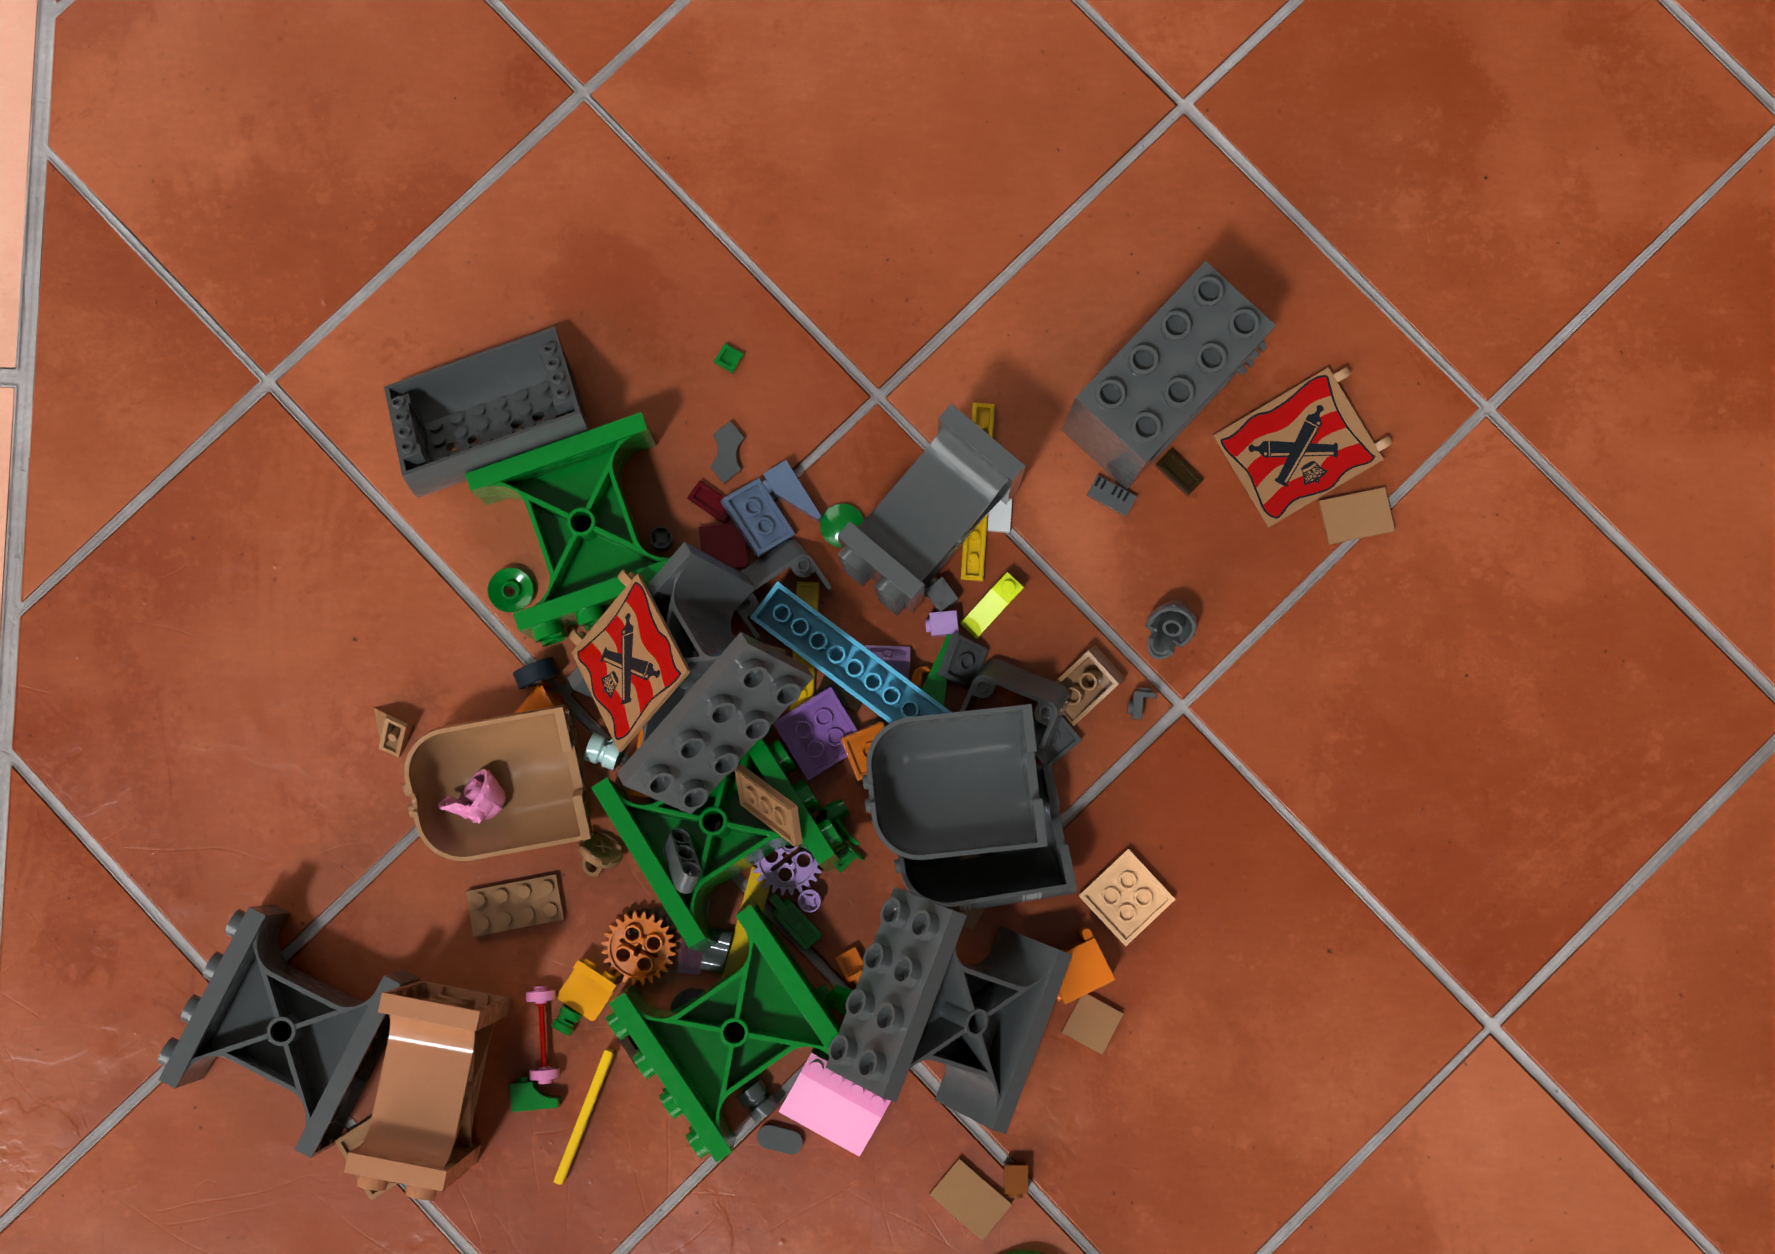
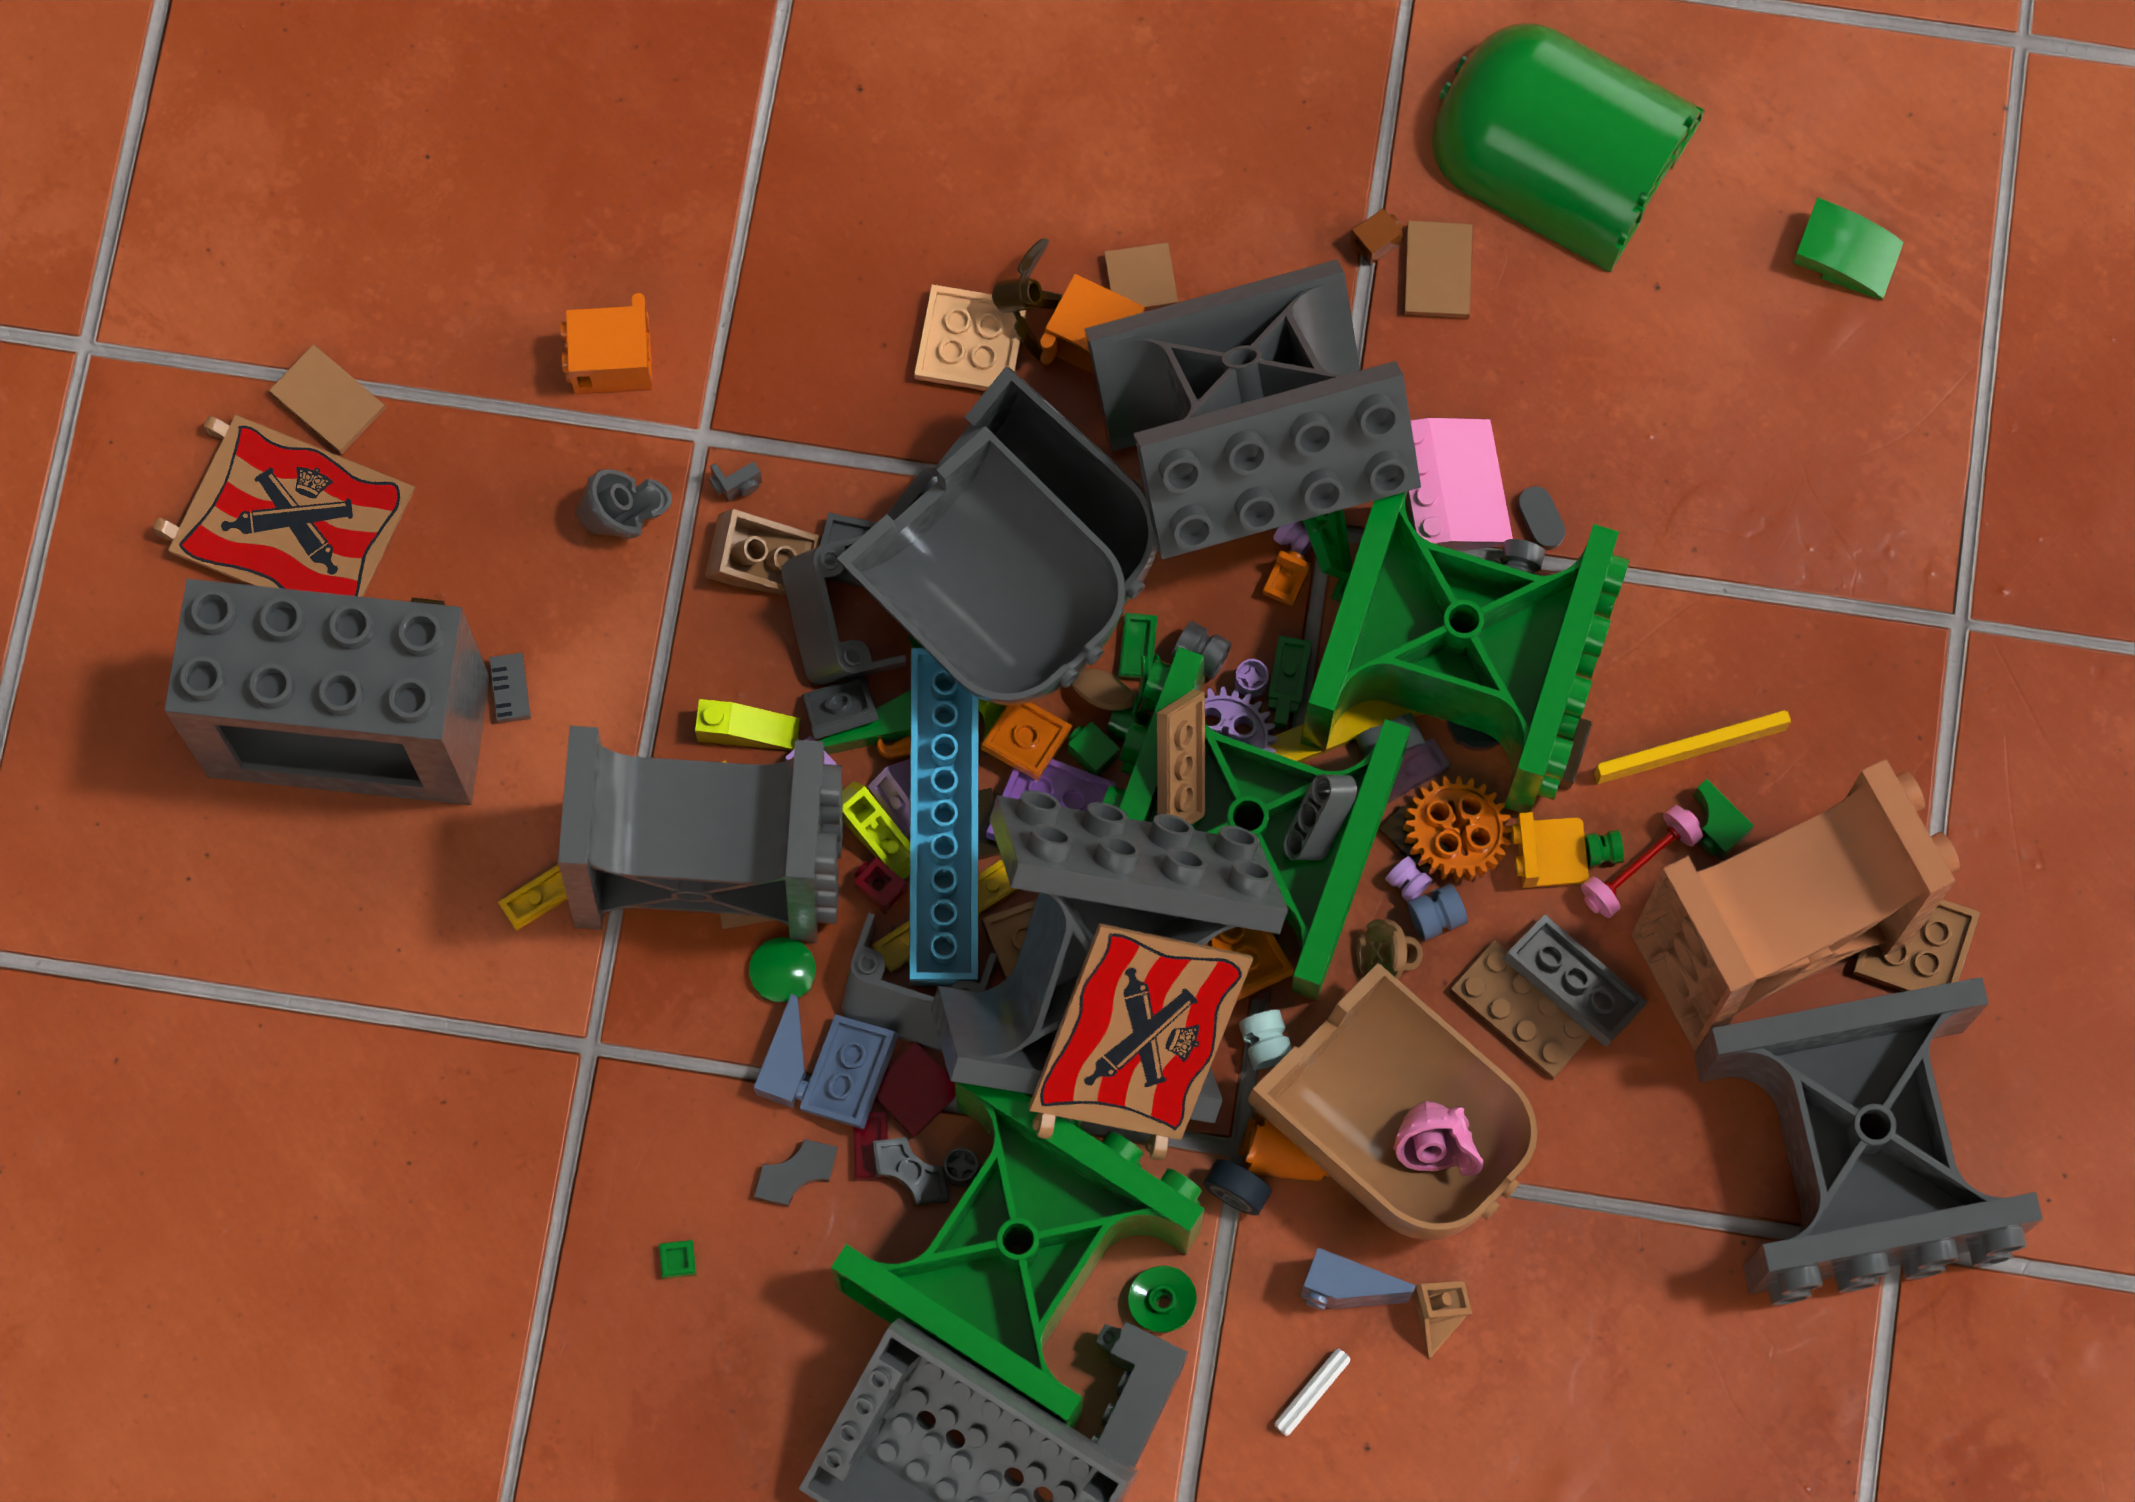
camera: 125 degrees left, 10 degrees down
(403, 632) = (1312, 1392): none -> white axle
(439, 689) = (1347, 1284): none -> sand blue slope
(468, 542) = (1144, 1389): none -> dark grey hinge
(506, 944) = (1575, 980): none -> dark grey plate
(601, 899) = (1437, 912): none -> sand blue wheel
(632, 898) = (1408, 879): none -> lavender wheel
(691, 507) = (897, 1161): none -> dark grey tile
(836, 782) = (1092, 749): none -> green brick
(840, 606) = (877, 871): none -> dark red brick
(846, 885) = (1214, 648): none -> flat silver wheel
(856, 816) = (1103, 689): none -> medium nougat arm
(876, 853) = (1137, 640): none -> green tile
(882, 630) = (875, 829): none -> neon yellow slope
(1125, 942) = (1025, 294): none -> dark brown plant
(1269, 688) = (608, 348): none -> orange container

